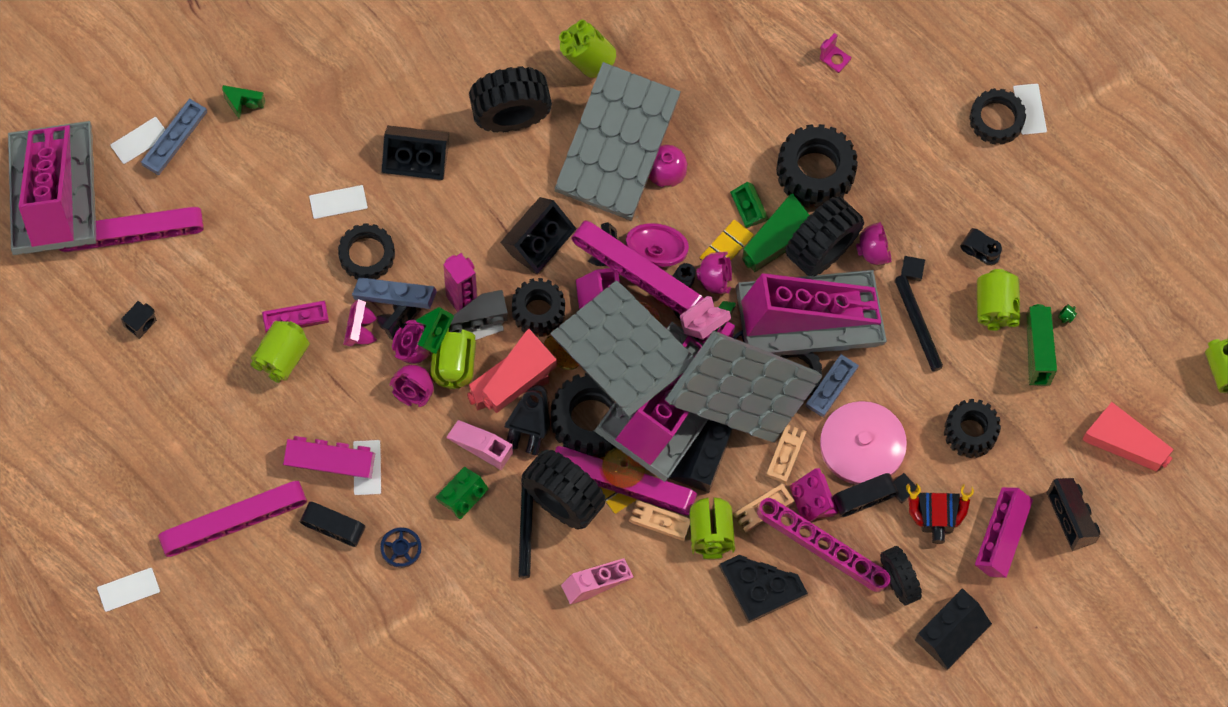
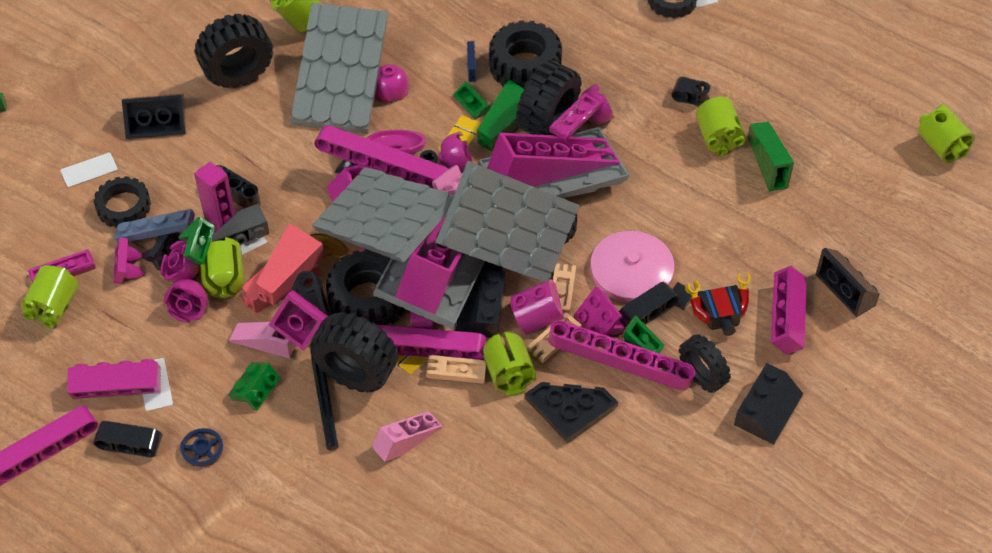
camera: 10 degrees left, 15 degrees down
(487, 269) = (242, 191): none -> black beam
(516, 443) = (297, 320): none -> dark pink brick
(538, 234) = (284, 157): black slope -> none
(538, 291) = (295, 200): black tyre -> none
(618, 475) = (406, 333): clear yellow dish -> none
(755, 471) = (537, 307): none -> dark pink brick
(758, 156) = (471, 61): none -> dark blue tile
(832, 385) = (589, 224): sand blue plate -> none
(847, 262) = (575, 116): none -> dark pink tile
(849, 531) = (640, 335): none -> green slope
(913, 268) = (634, 120): black tile -> none
(918, 323) = (653, 161): black axle -> none
(977, 412) = (727, 243): black tyre -> none
(1067, 314) = (784, 128): green plate -> none
(1129, 439) = (875, 213): coral slope -> none

